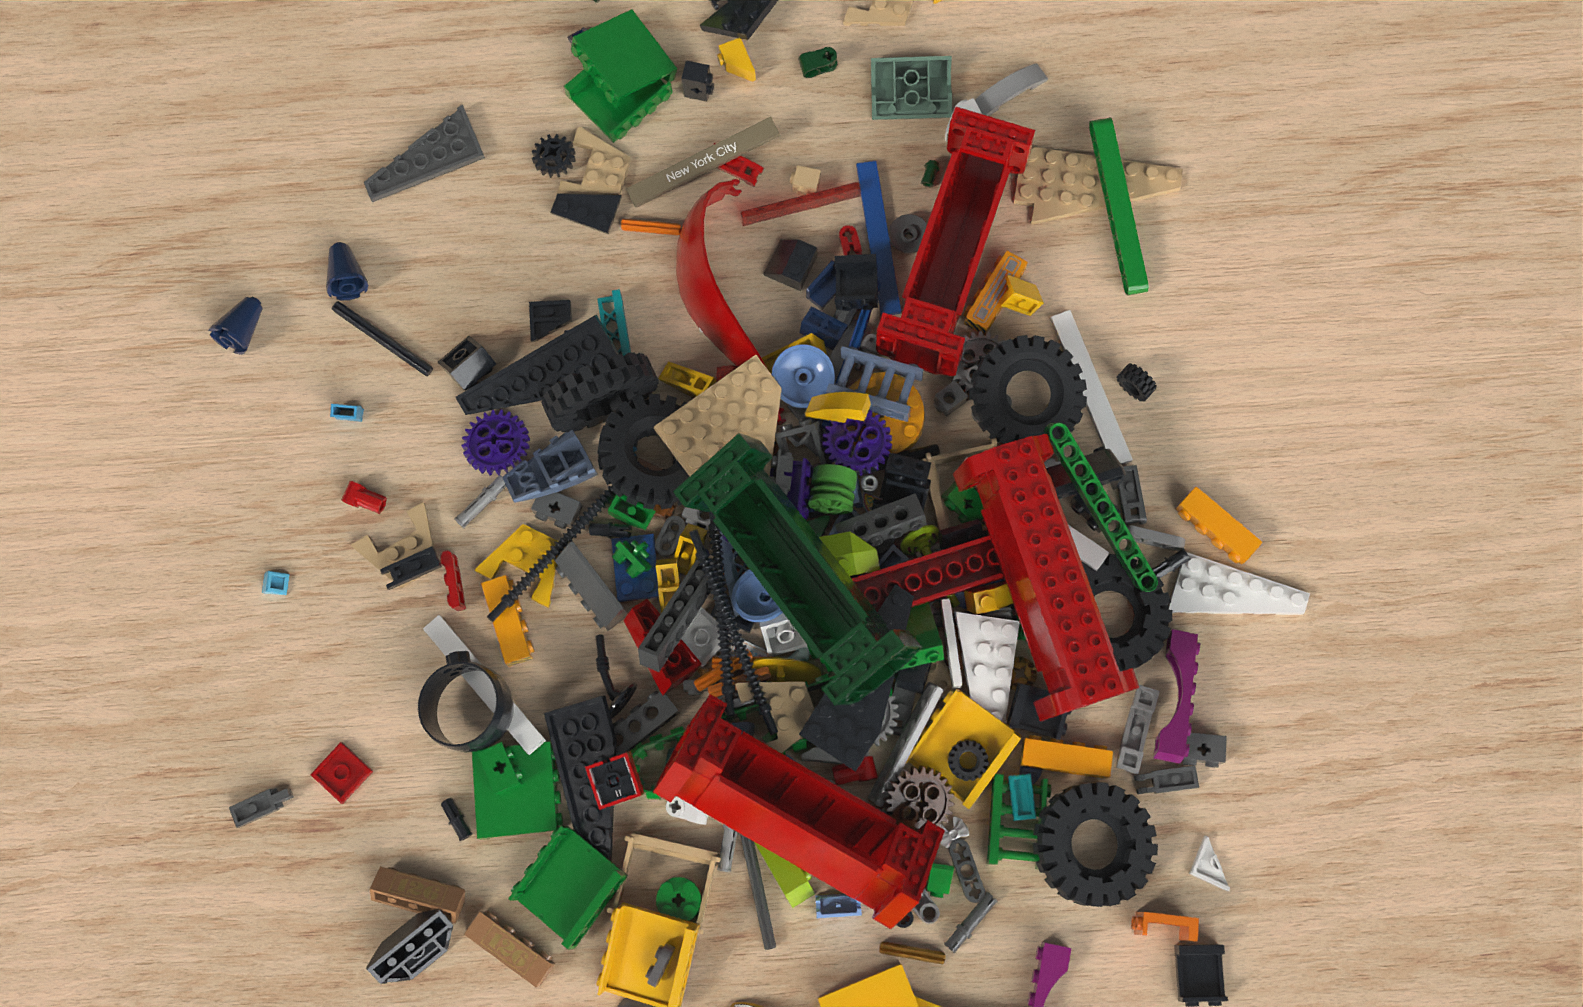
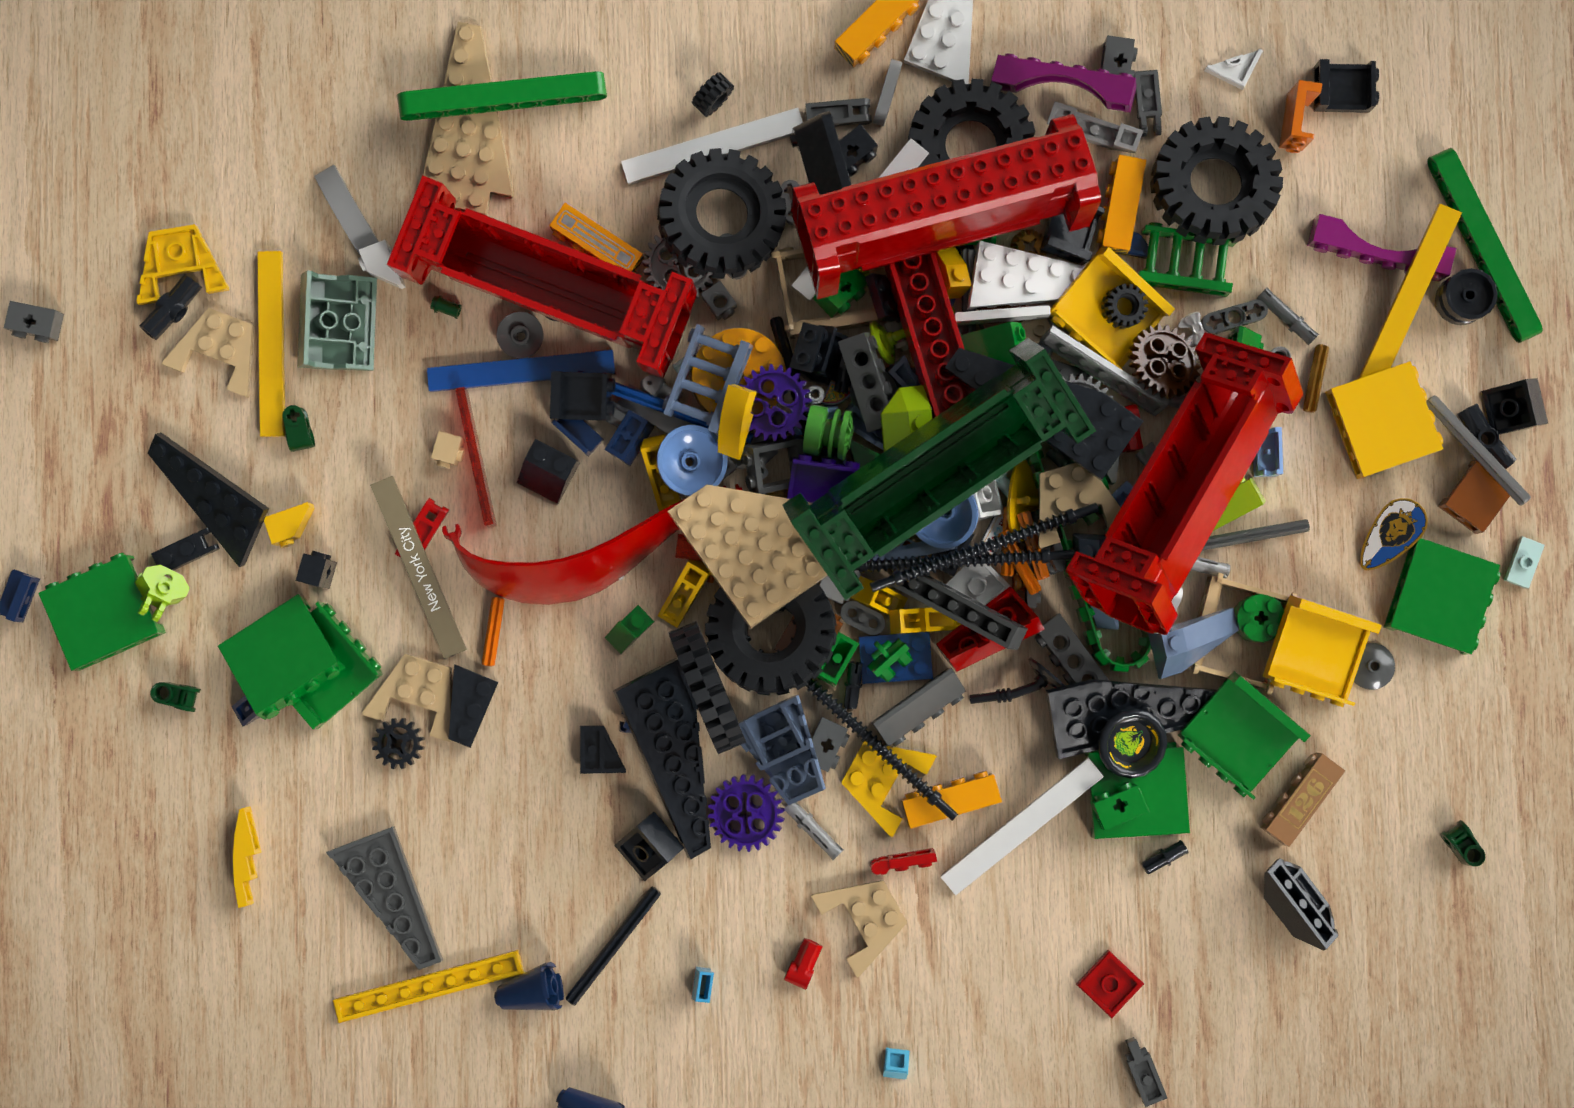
camera: 90 degrees left, 10 degrees up
(350, 193) = (428, 986): none -> yellow tile
(412, 567) = (889, 905): black hinge -> none
(416, 893) = (1244, 898): medium nougat brick -> none
(458, 664) = (1004, 846): black cylinder -> none
(465, 42) = (245, 846): none -> yellow slope
(557, 778) = (1132, 743): none -> black piece
(614, 780) = (1140, 680): piece -> none
(620, 320) = (614, 667): teal fence -> none
(653, 829) = (1191, 641): none -> sand blue wedge
(656, 339) = (629, 629): none -> green slope
(663, 957) = (1321, 634): dark grey plate -> none
(782, 464) = (796, 484): dark grey hinge -> none
(855, 243) = (527, 397): red beam -> none
(892, 38) = (271, 343): none -> yellow tile
(1021, 296) = (606, 210): yellow panel -> none
(1022, 797) = (1163, 253): teal tile -> none
(1109, 513) = (858, 144): green beam -> none
(1171, 563) = (917, 77): black axle -> none

